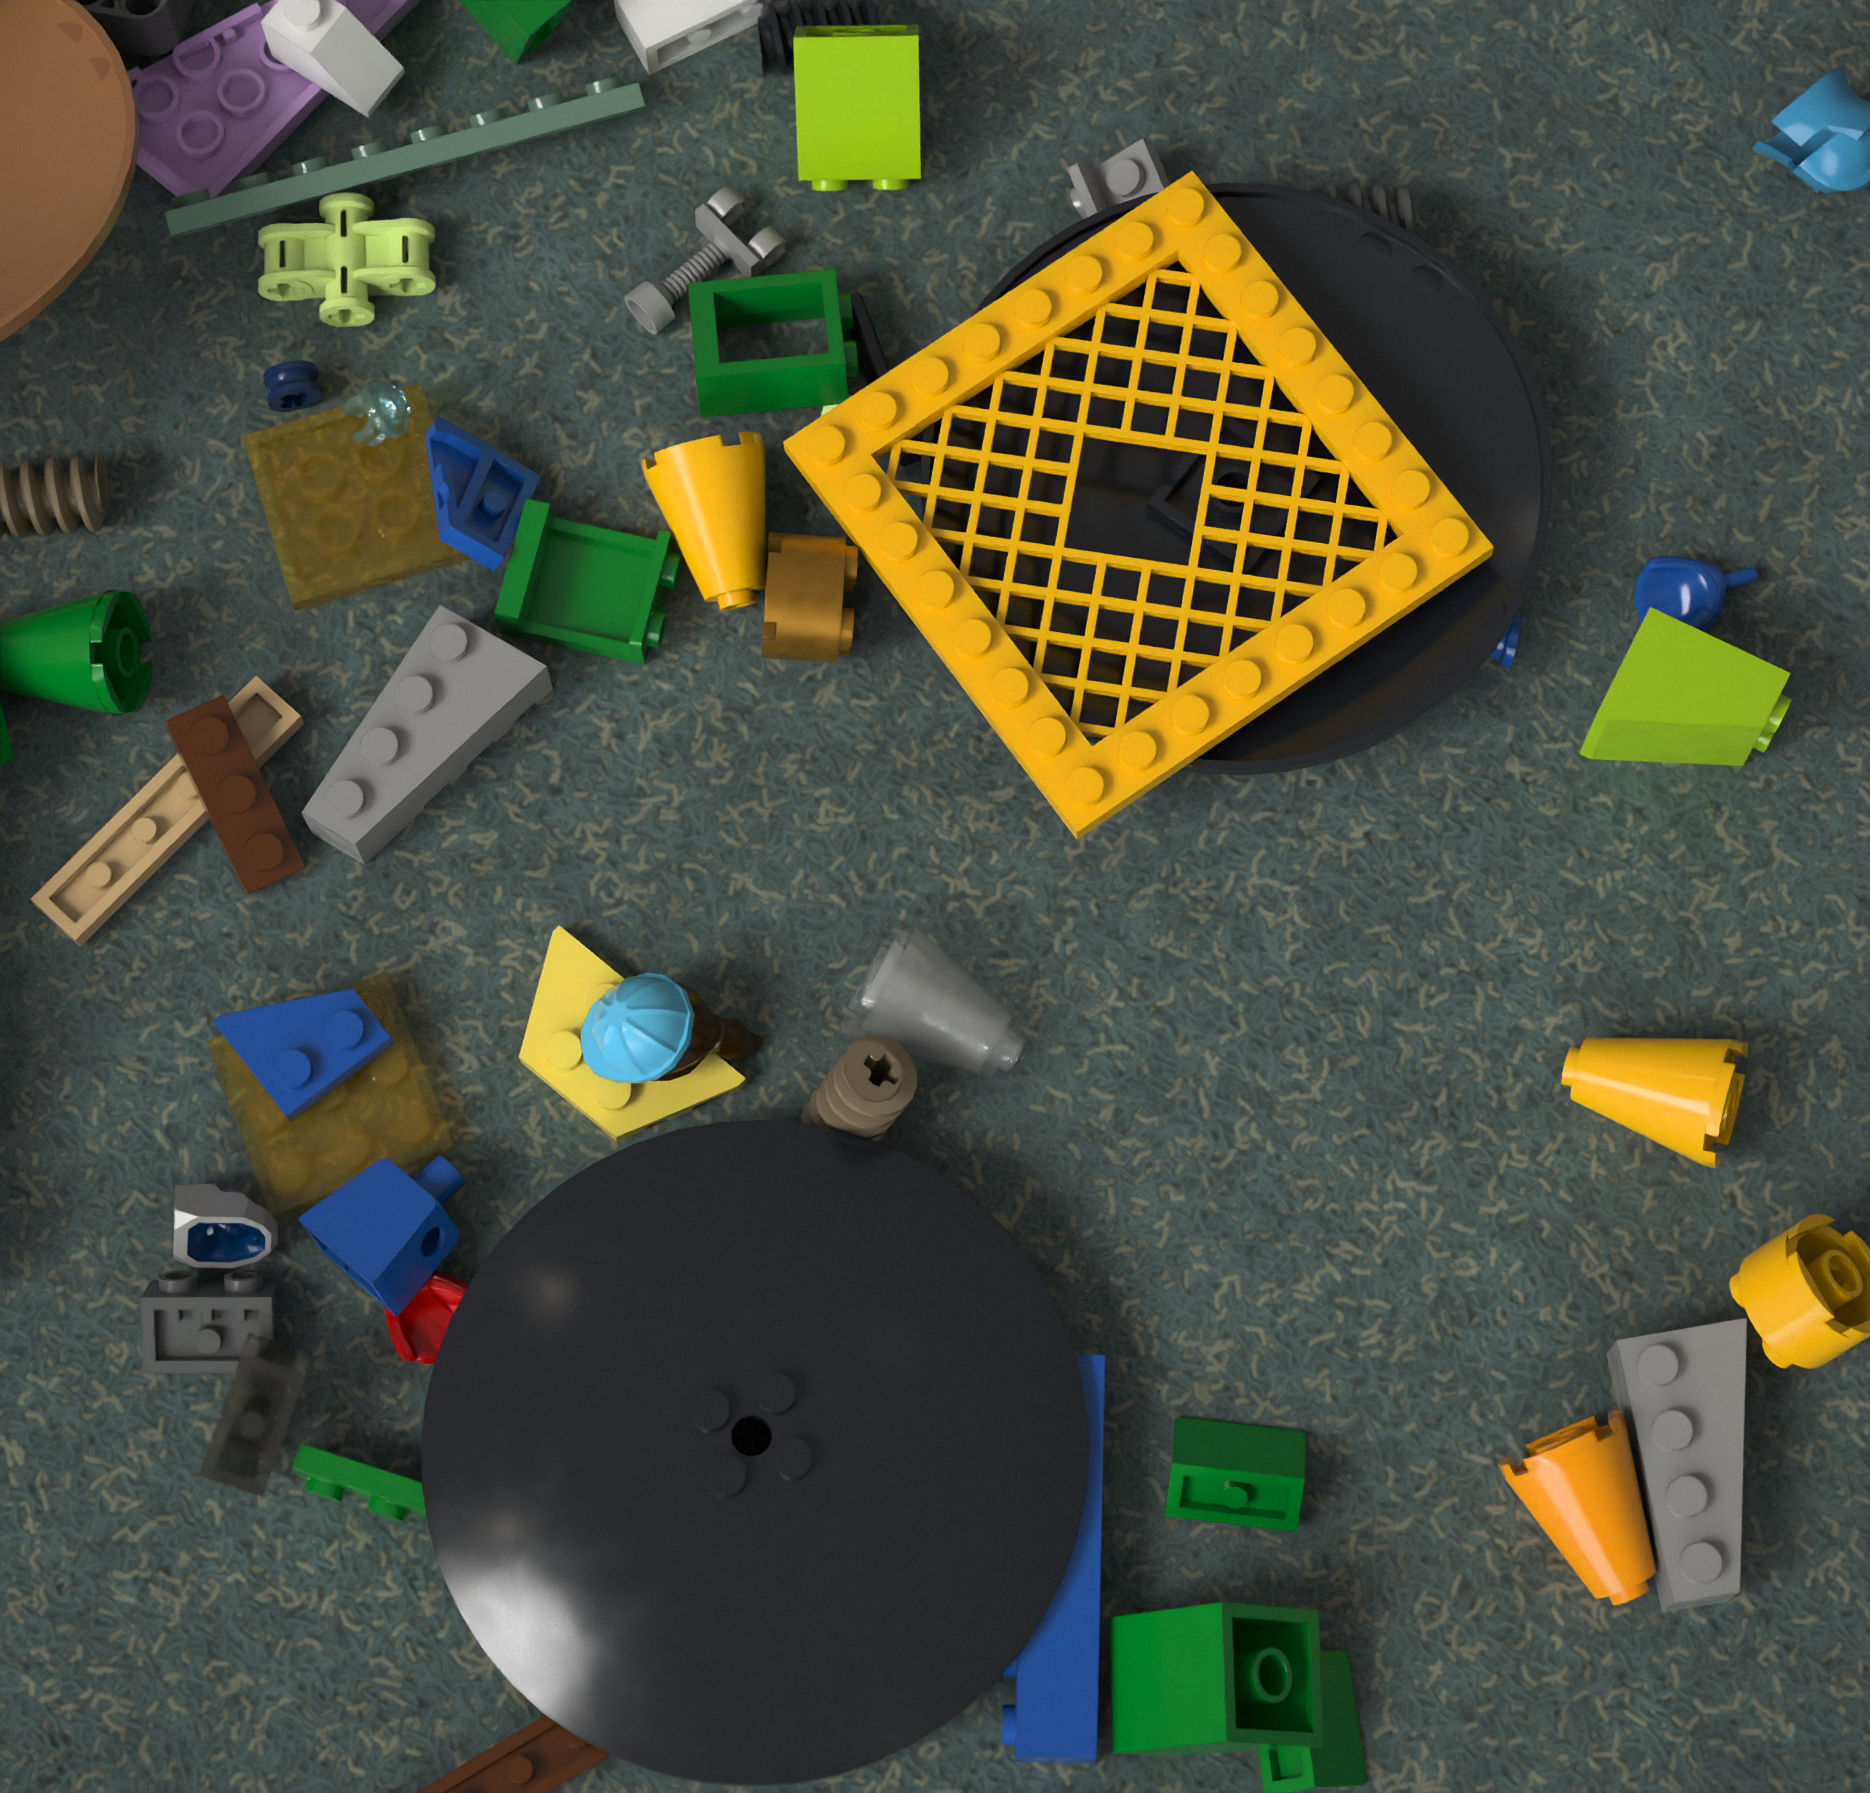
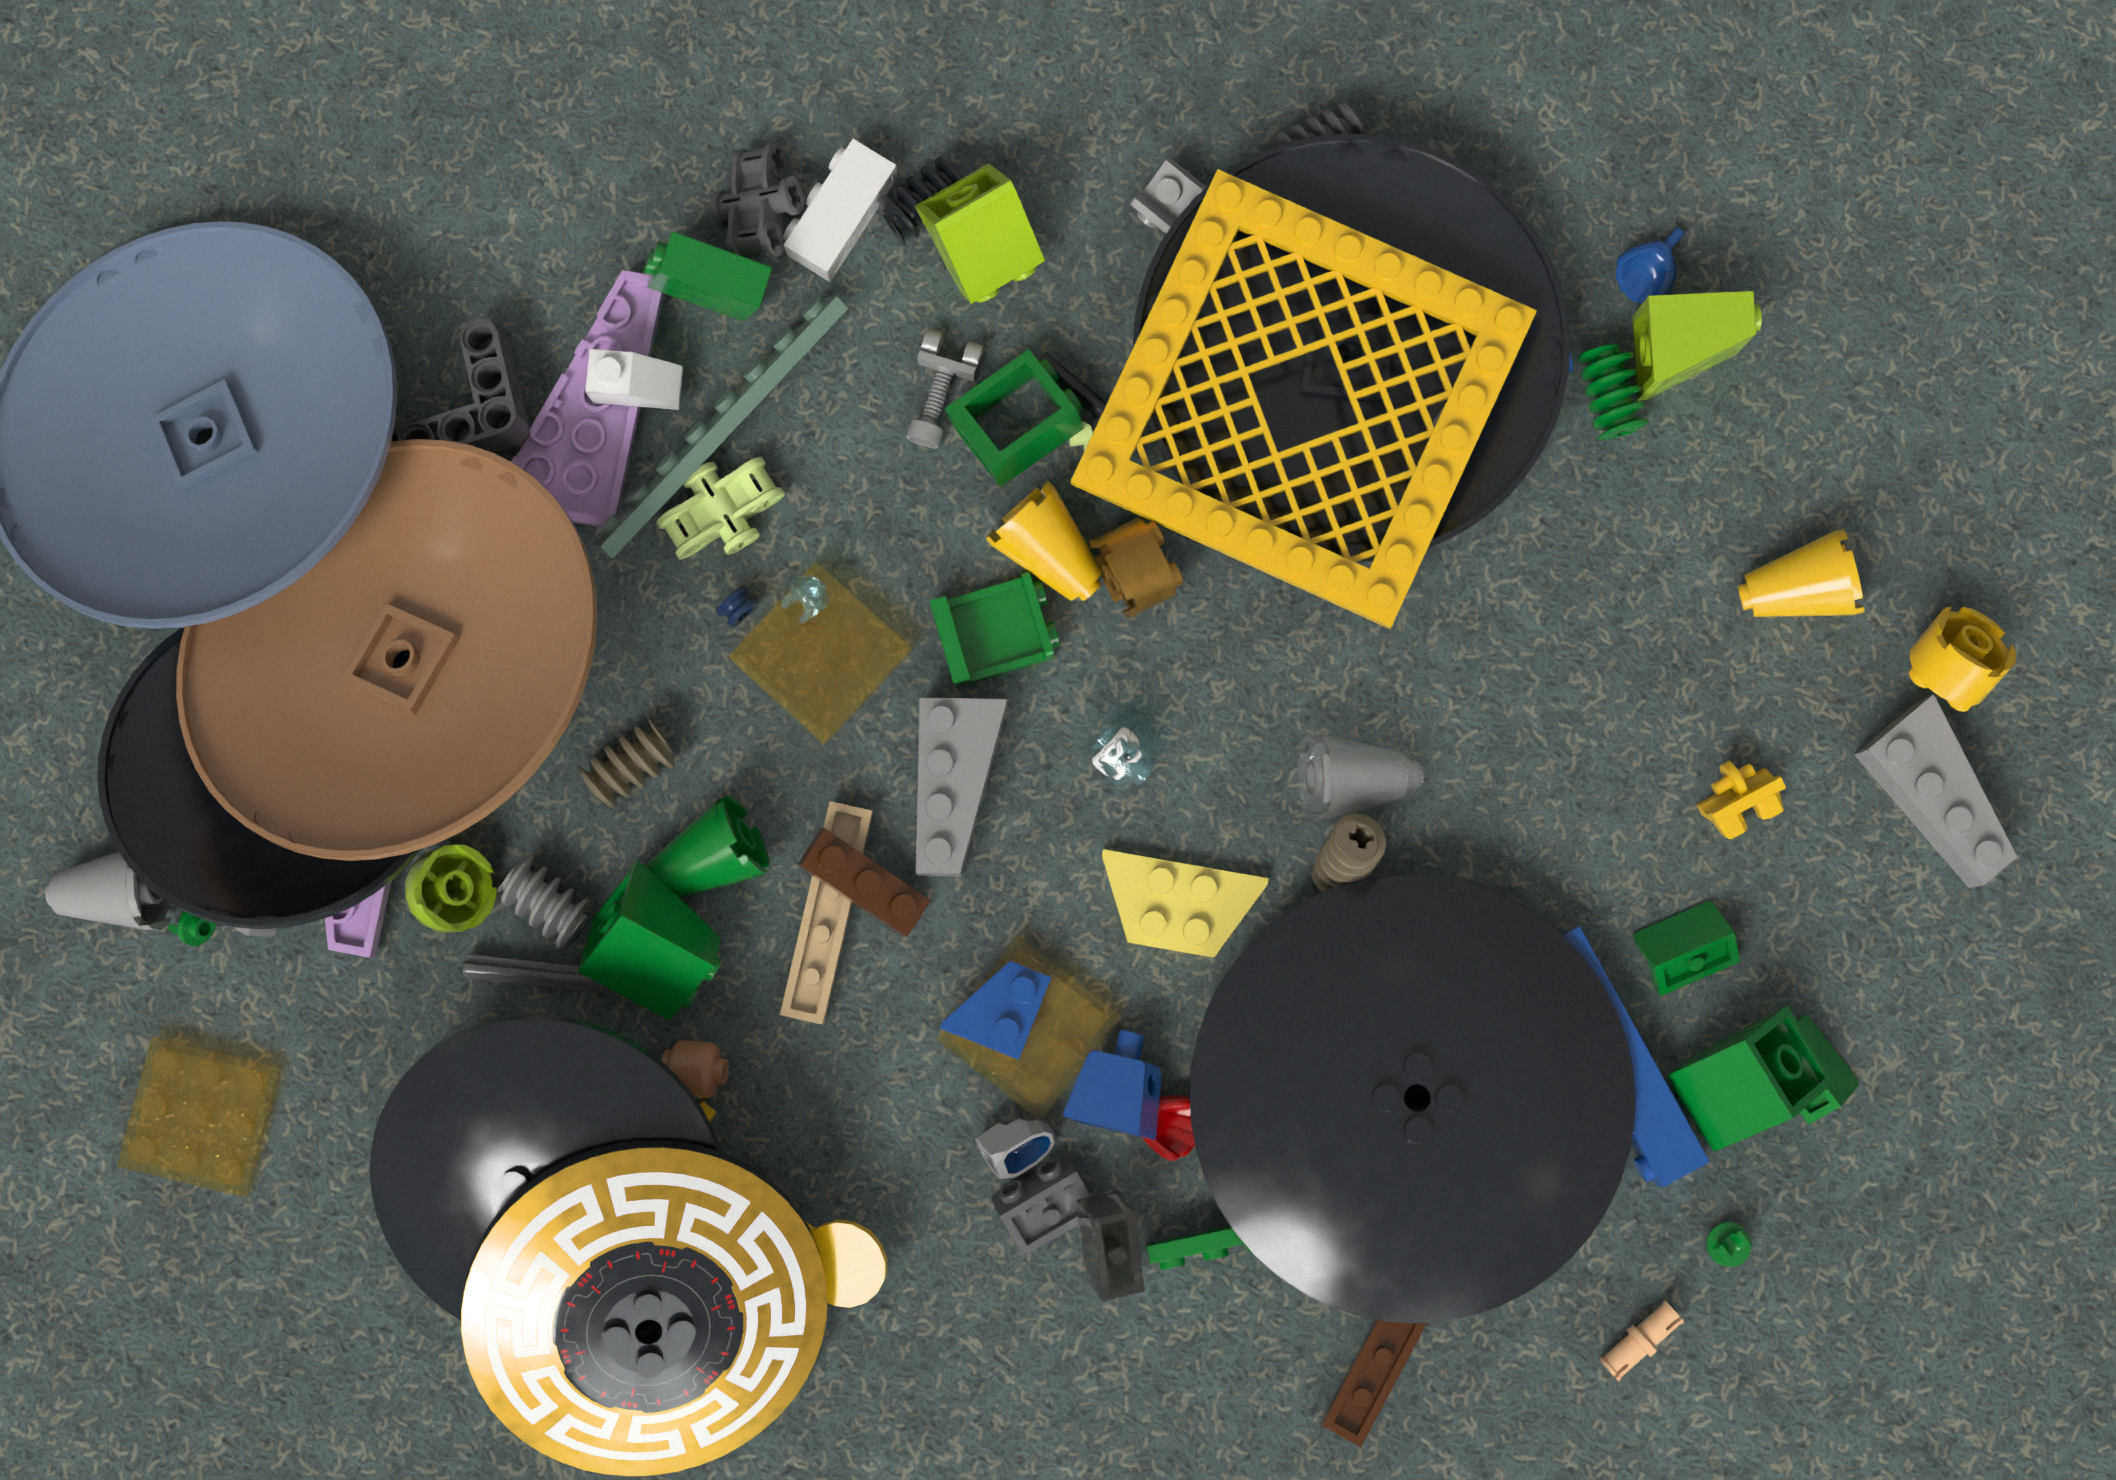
camera: 30 degrees left, 10 degrees up
(475, 493) = (896, 613): blue wing -> none
(653, 821) = (1123, 755): none -> clear light blue head
(658, 1032) = (1204, 884): medium azure piece -> none
(1450, 1322) = (1738, 792): none -> yellow hips
(1545, 717) = (1612, 391): none -> green piece
(1589, 1504) = (1896, 848): light orange cone -> none

